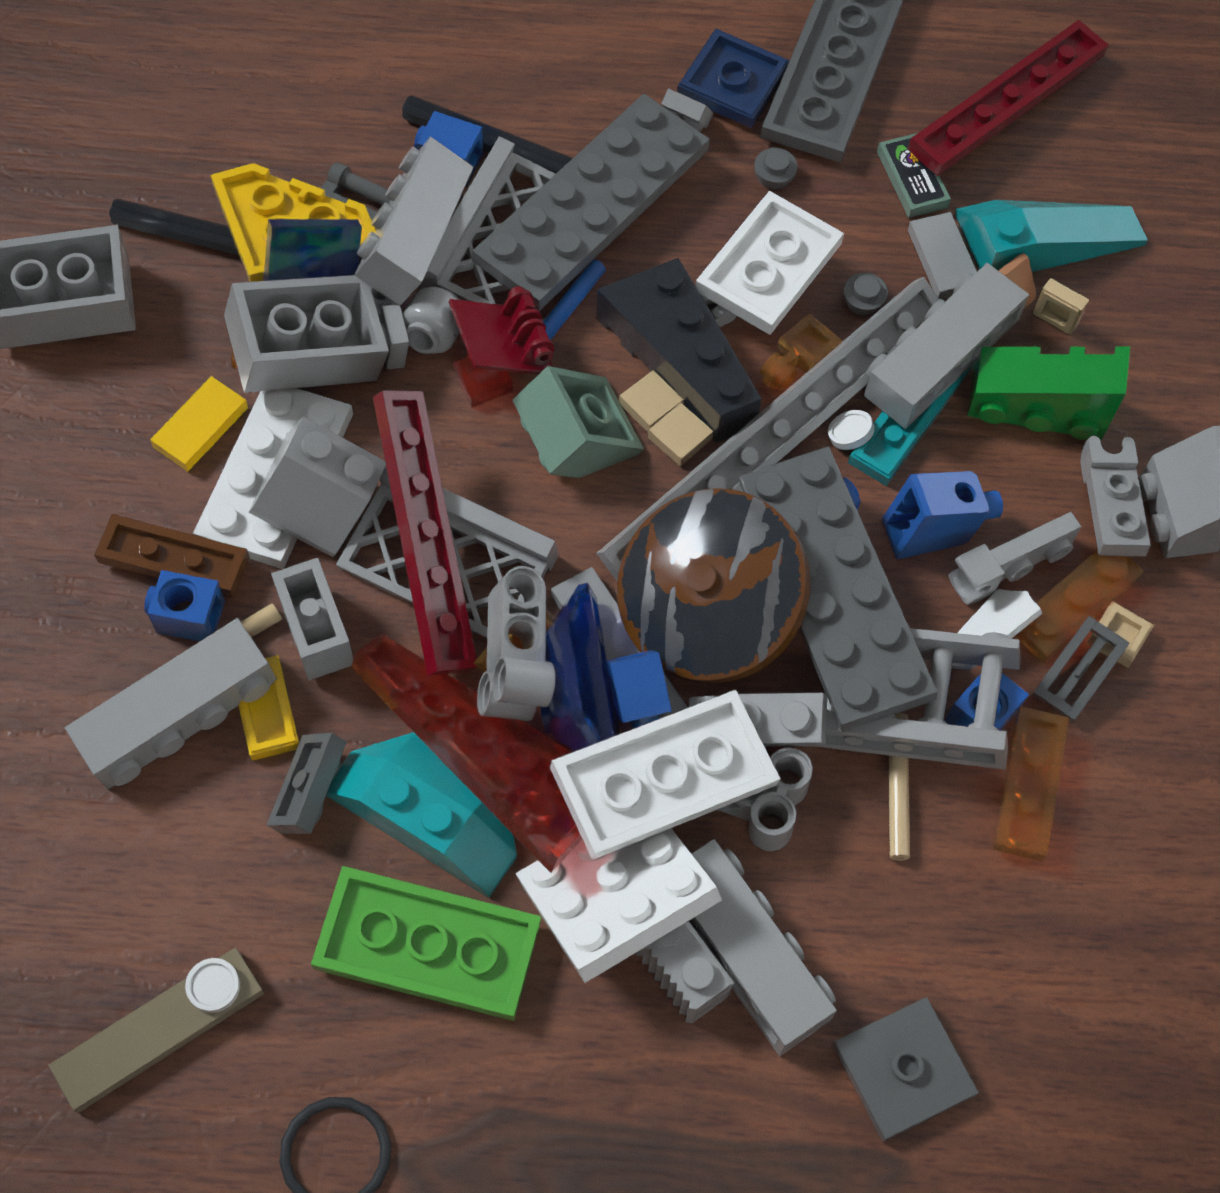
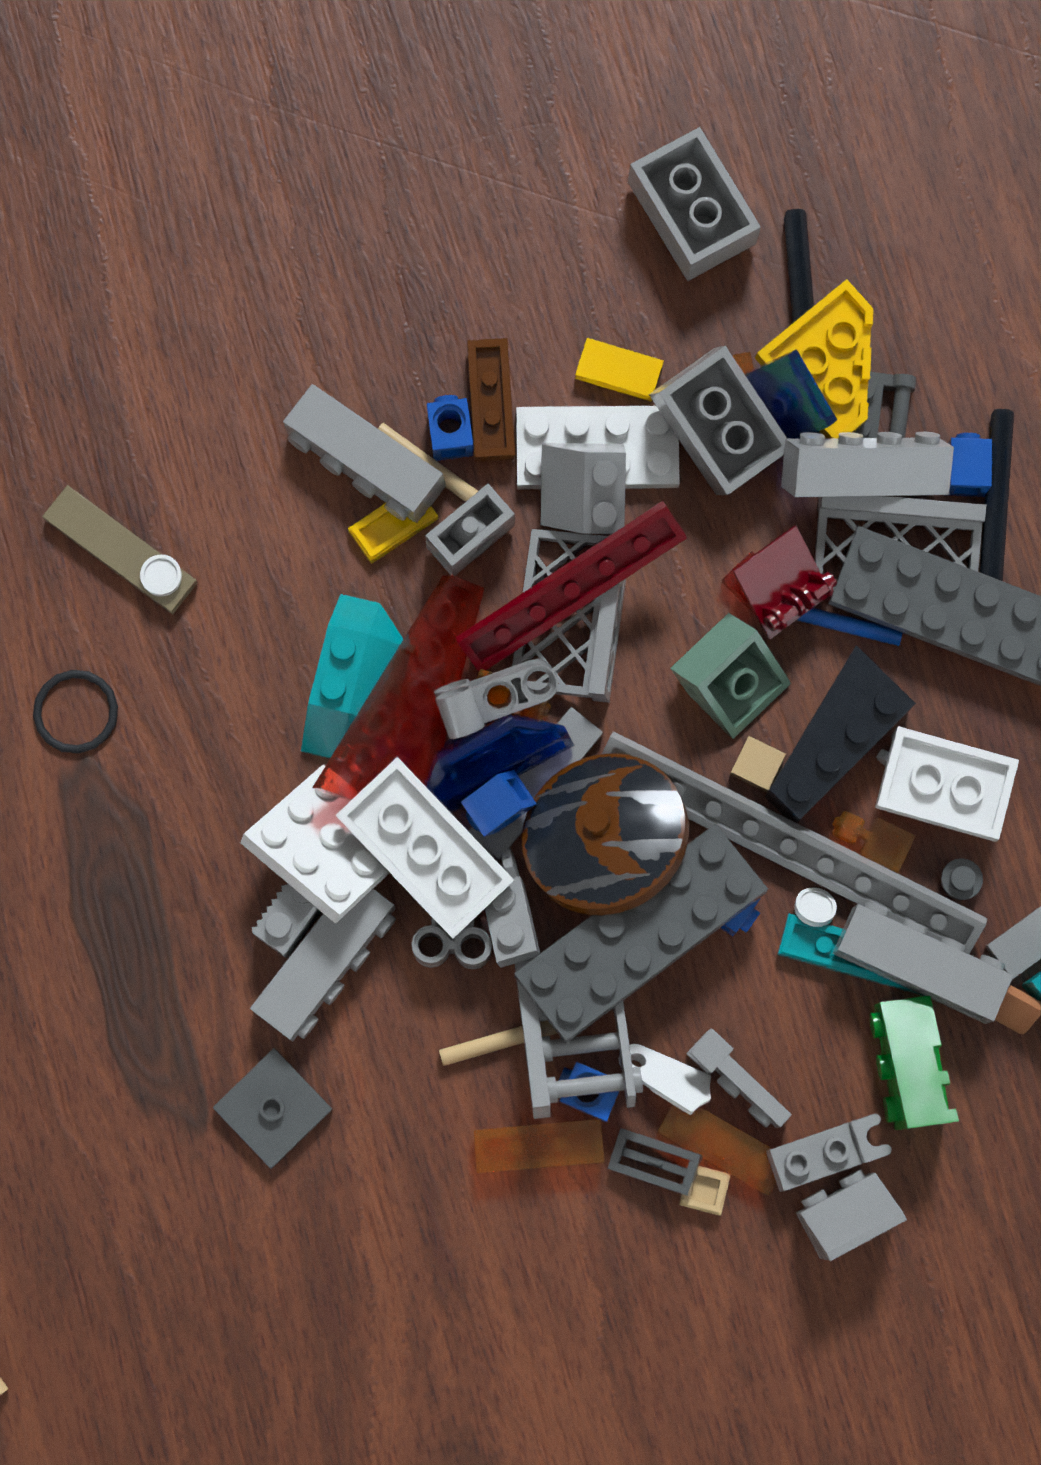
camera: 70 degrees right, 15 degrees up
(307, 784) = (338, 580): dark grey plate -> none
(393, 329) = (757, 488): light grey plate -> none
(427, 943) = (246, 718): bright green plate -> none
(431, 321) = (781, 512): light grey head -> none
(649, 400) = (780, 728): tan tile -> none
(938, 512) = (746, 990): blue torso -> none
(1060, 306) = (1011, 1057): tan tile -> none

